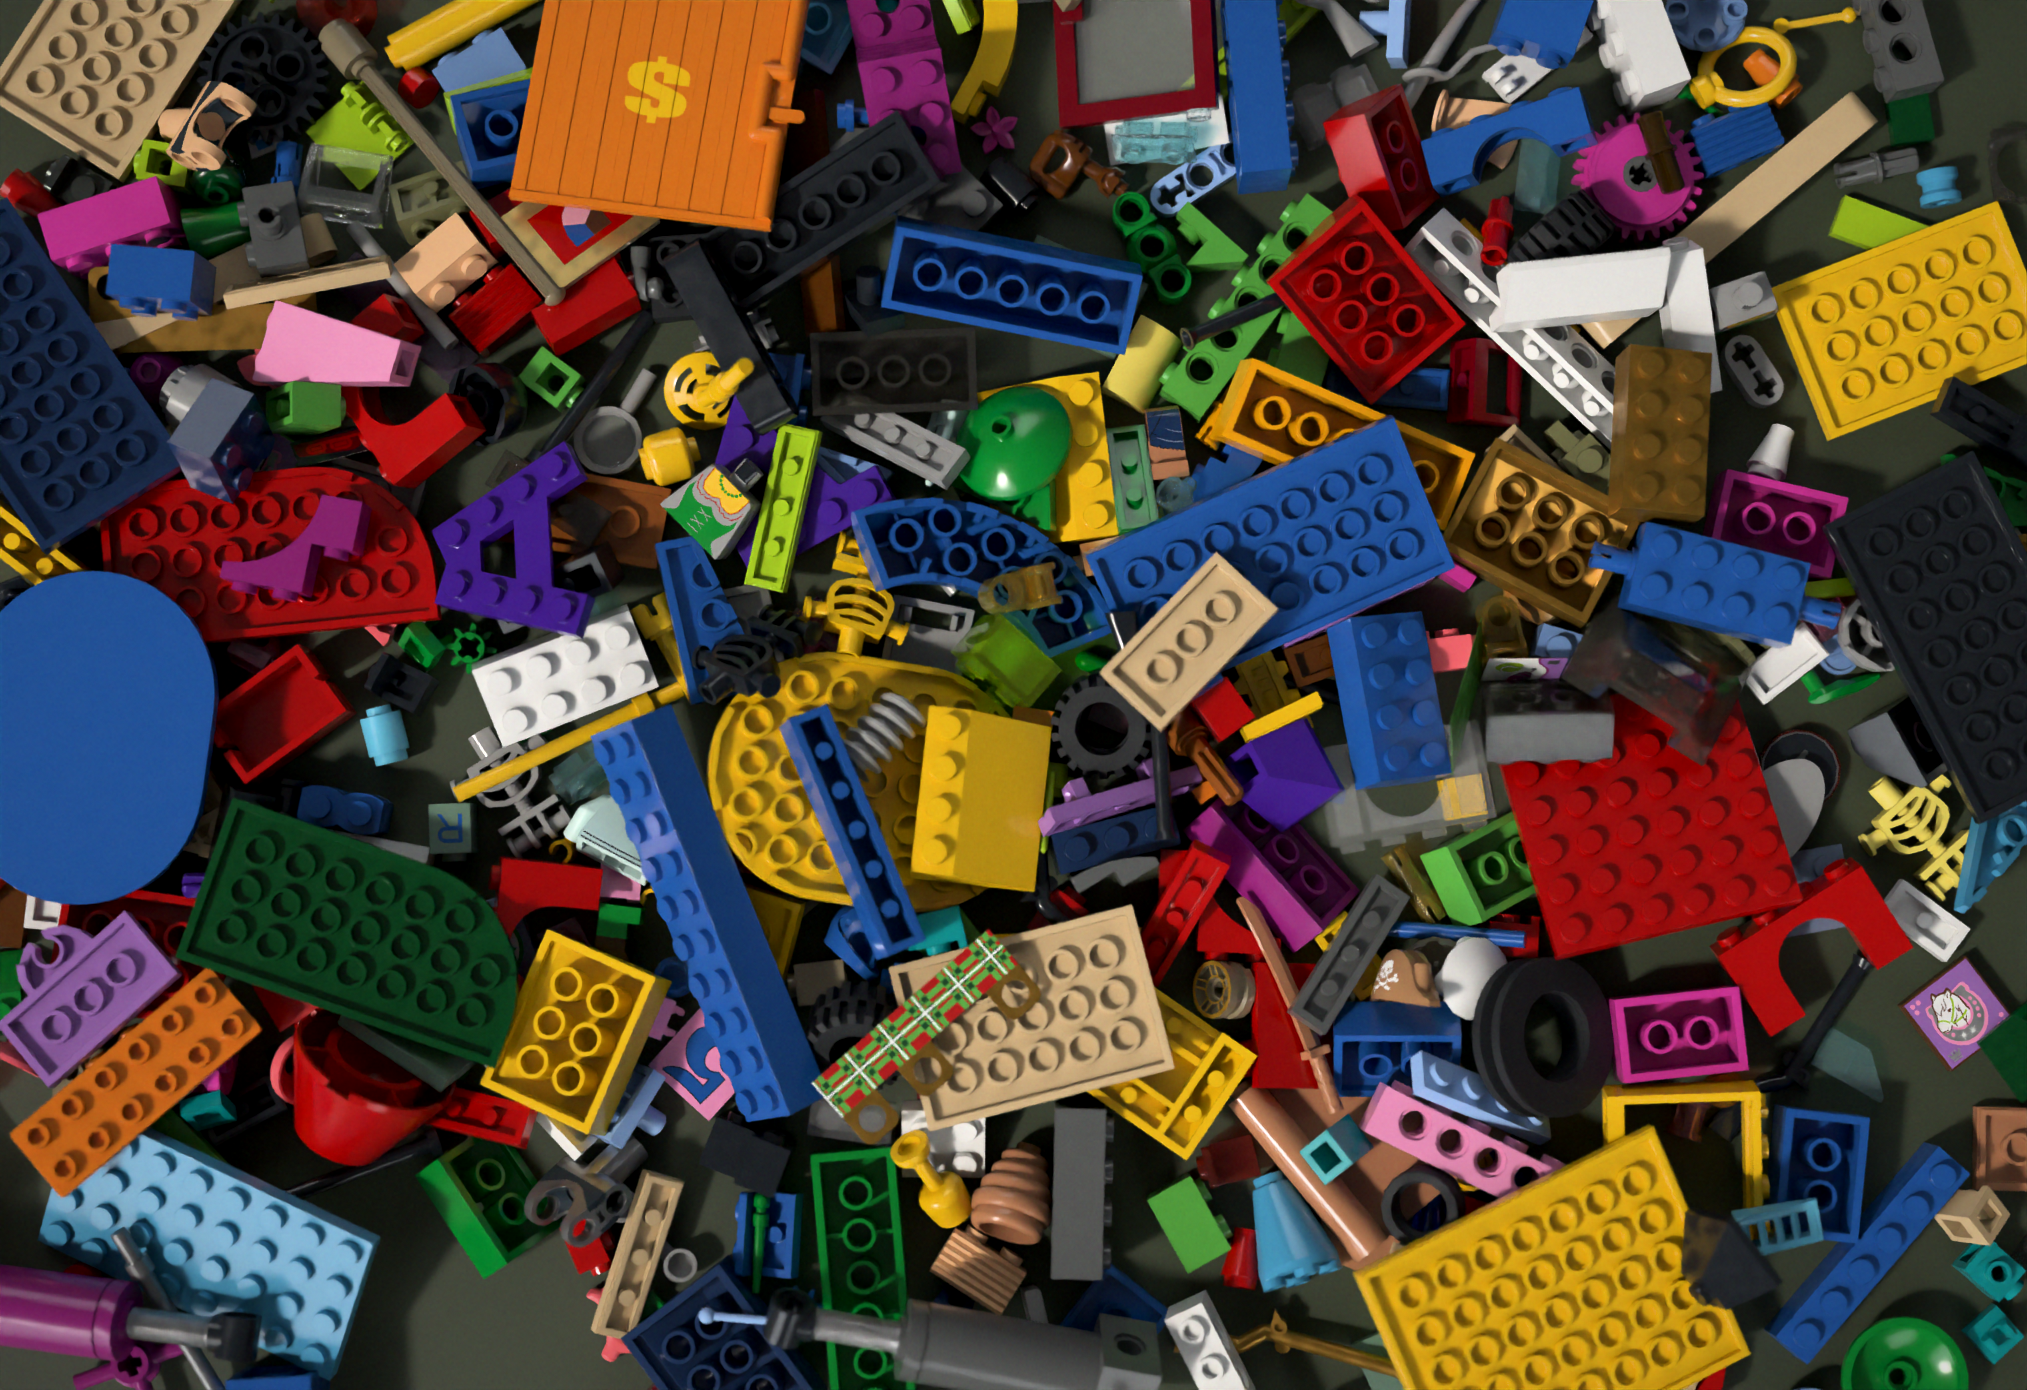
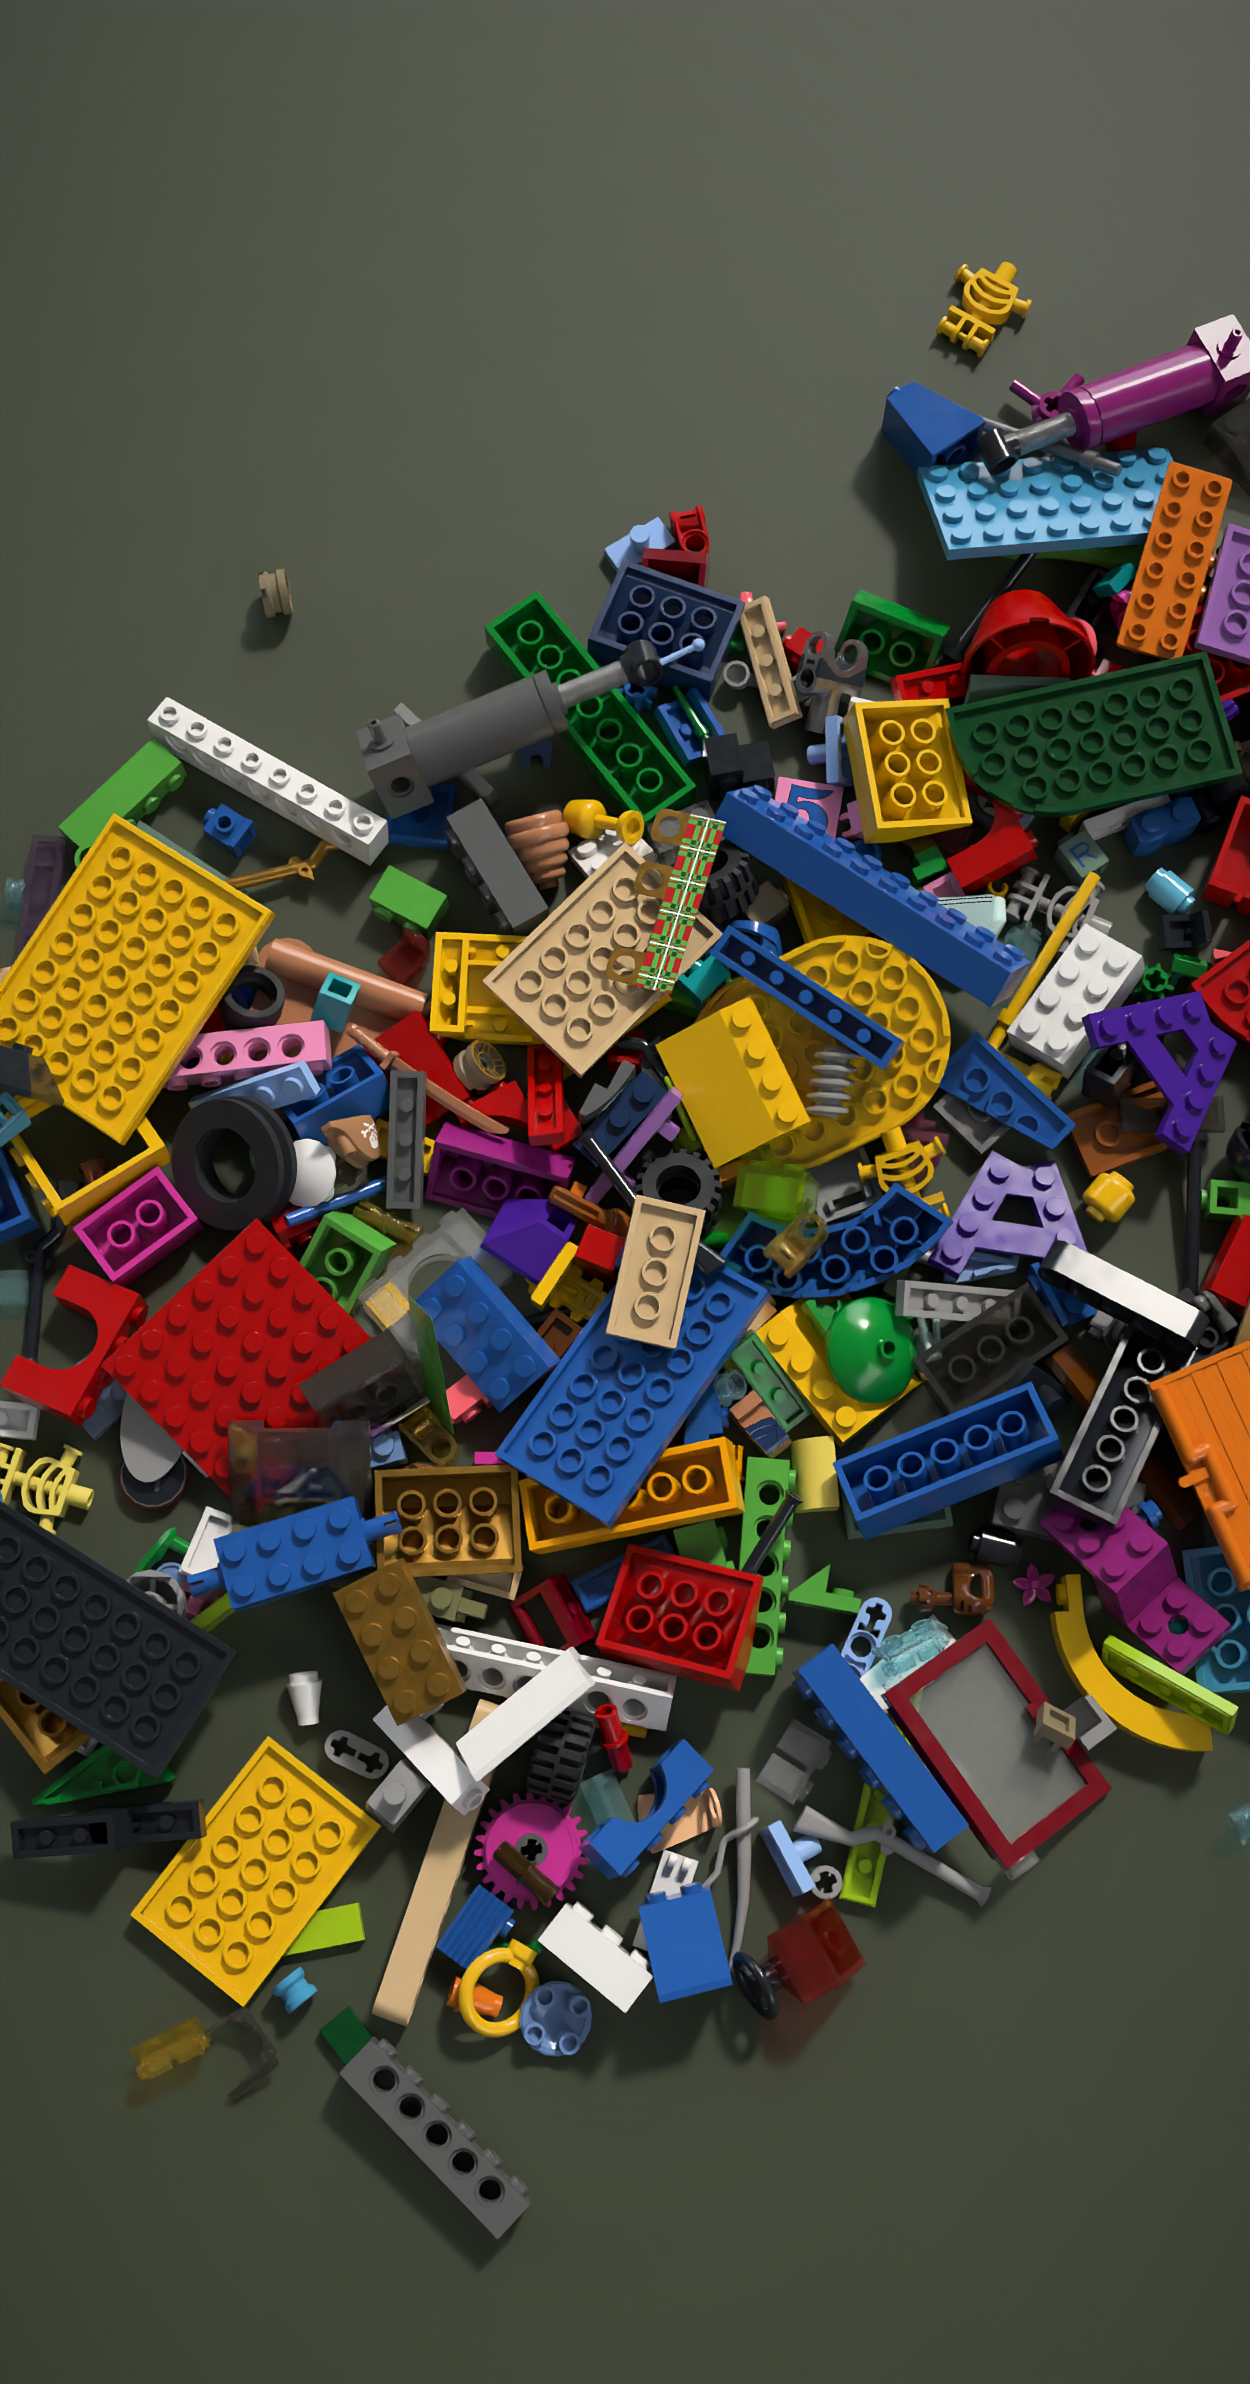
camera: 150 degrees right, 10 degrees down
(610, 435) = (1159, 1191): piece -> none
(706, 390) = (1112, 1252): yellow dish -> none
(717, 506) = (1050, 1176): torso -> none
(748, 661) = (965, 1081): black piece -> none
(783, 508) = (1003, 1205): lime tile -> none
(979, 1269) = (533, 788): light nougat brick -> none
(1144, 230) = (880, 1566): green piece -> none
(1241, 1262) = (355, 899): red cone -> none
(1288, 1235) = (334, 930): dark azure cone -> none
(1382, 156) = (735, 1736): red slope -> none
(1774, 518) = (276, 1639): dark pink brick -> none
(1782, 25) = (490, 2049): yellow hinge -> none
(1877, 167) = (351, 1977): dark grey axle -> none
(1898, 744) = (92, 1529): black slope -> none

